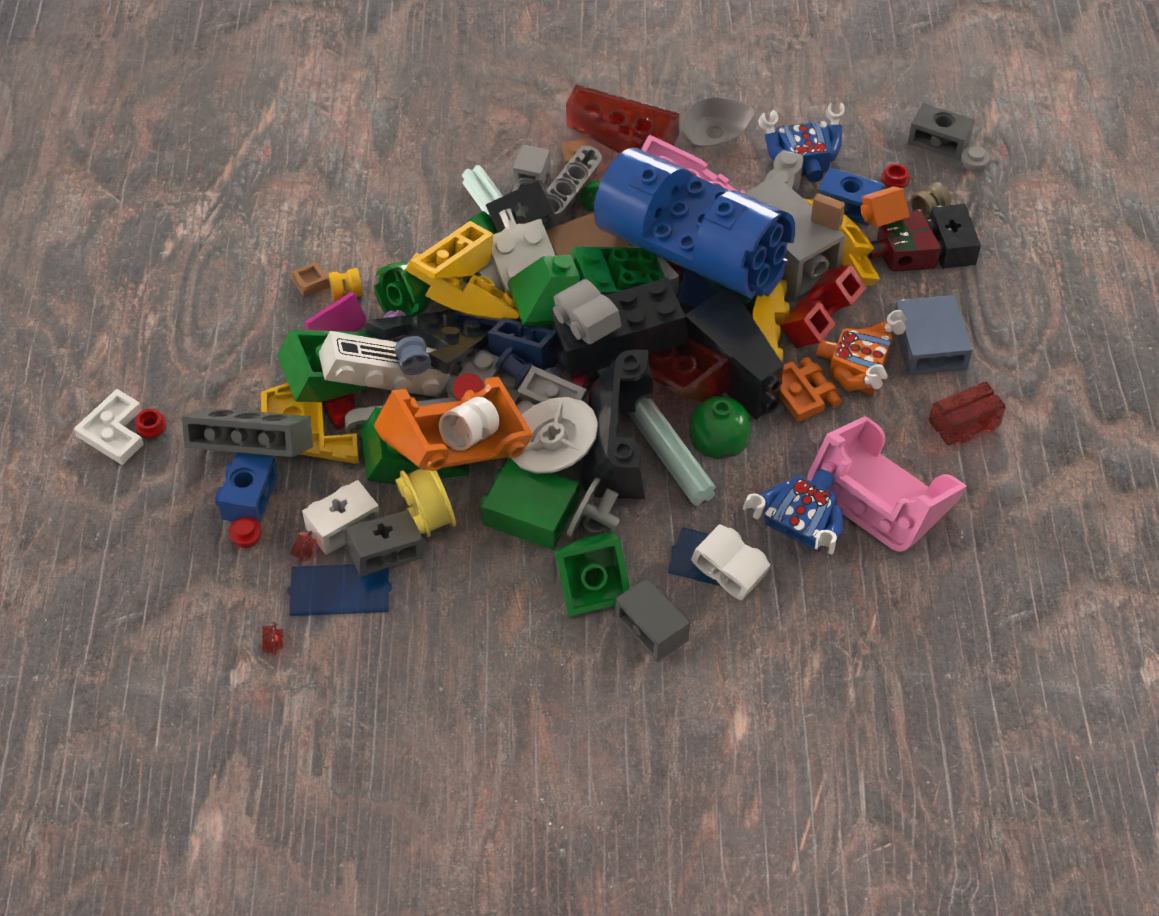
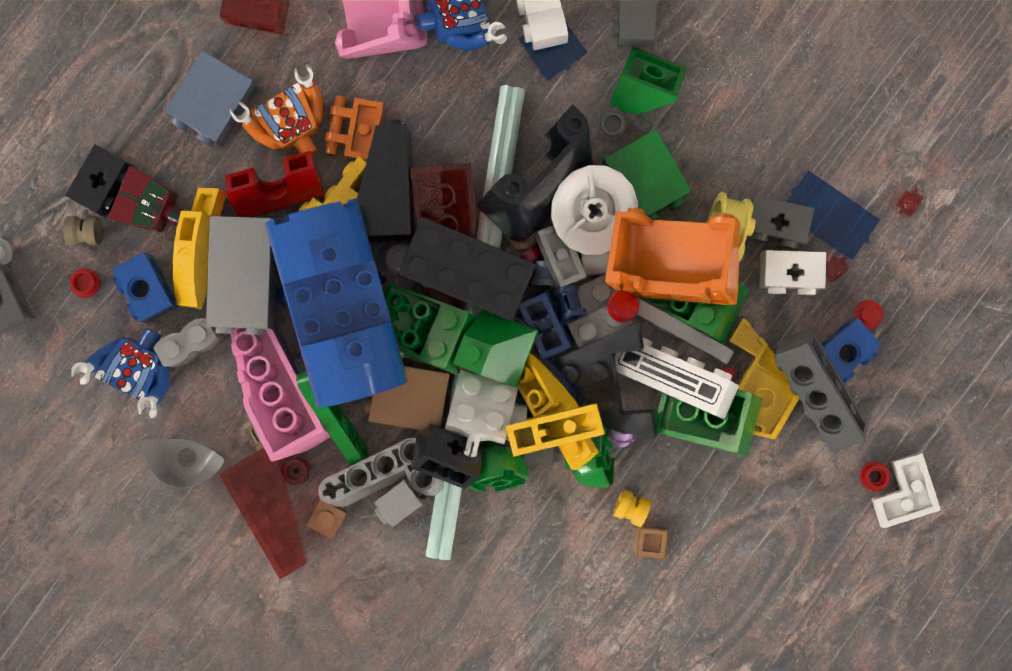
camera: 140 degrees left, 35 degrees up
(340, 316) = (666, 471): dark pink slope -> none
(412, 355) = (656, 354): sand blue wheel -> none
(468, 423) = (665, 252): white wheel -> none
(586, 311) = (499, 277): light grey brick -> none
(600, 513) = (615, 131): light grey shield -> none
(720, 427) = (448, 139): green cylinder -> none
(827, 211) = (208, 240): medium nougat tile -> none
(884, 206) = (140, 233): orange brick -> none

